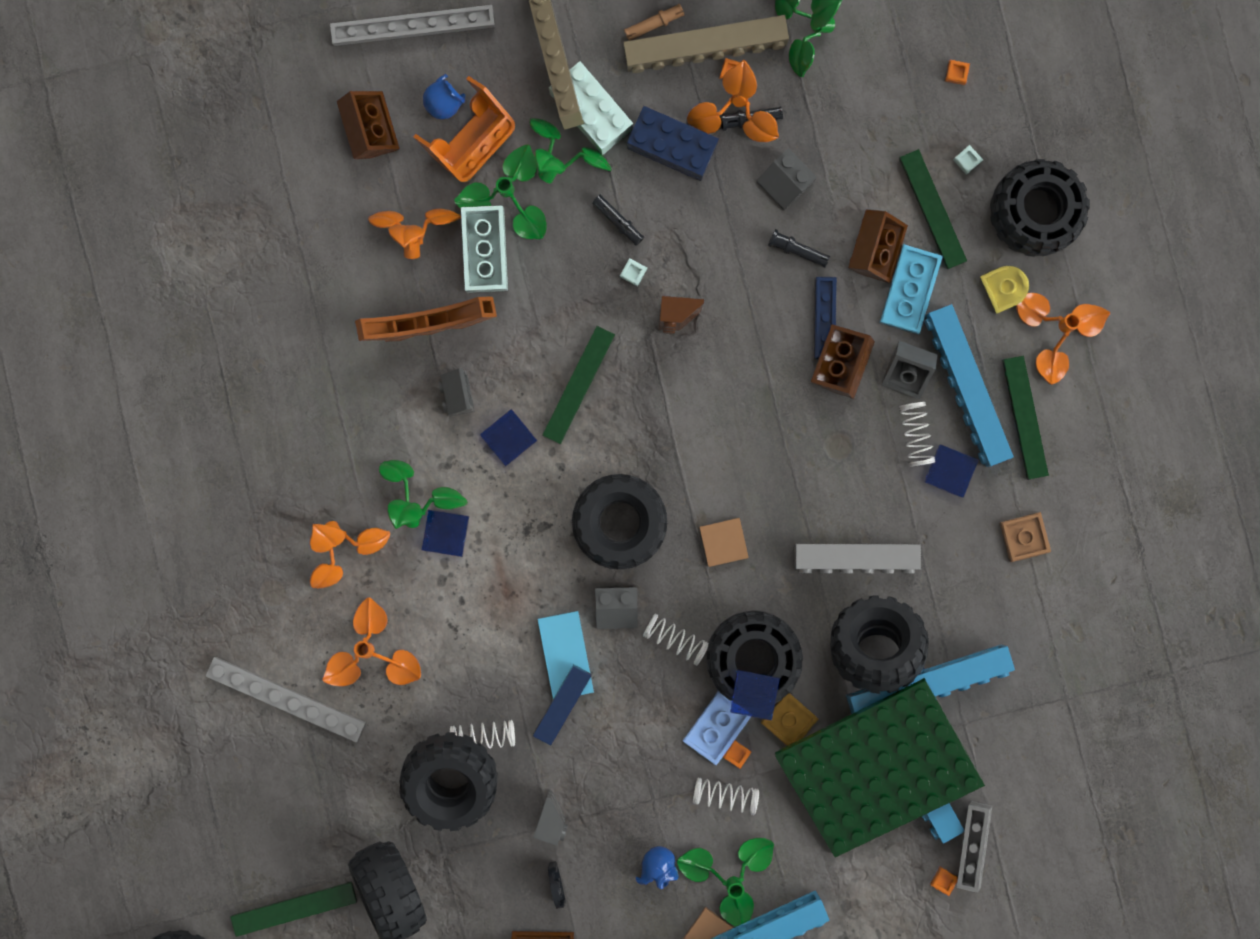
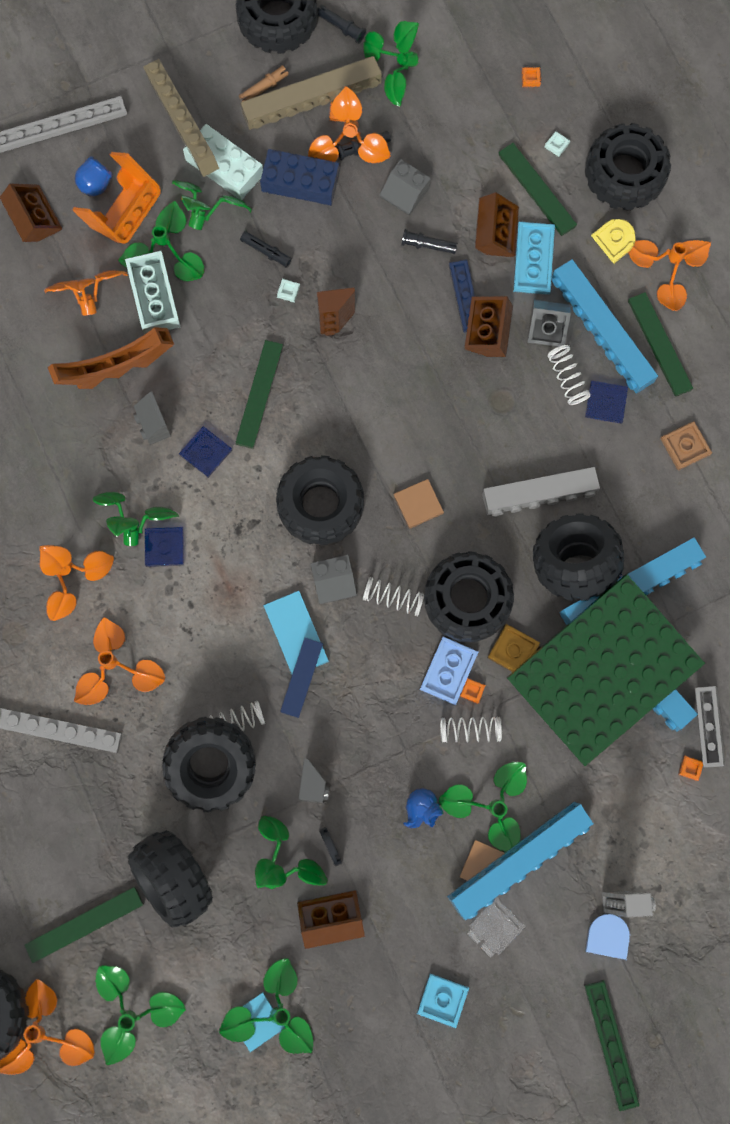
camera: 10 degrees left, 10 degrees down
(490, 905) = (272, 875): none -> green plant
(754, 695) = (475, 622): clear blue tile -> none

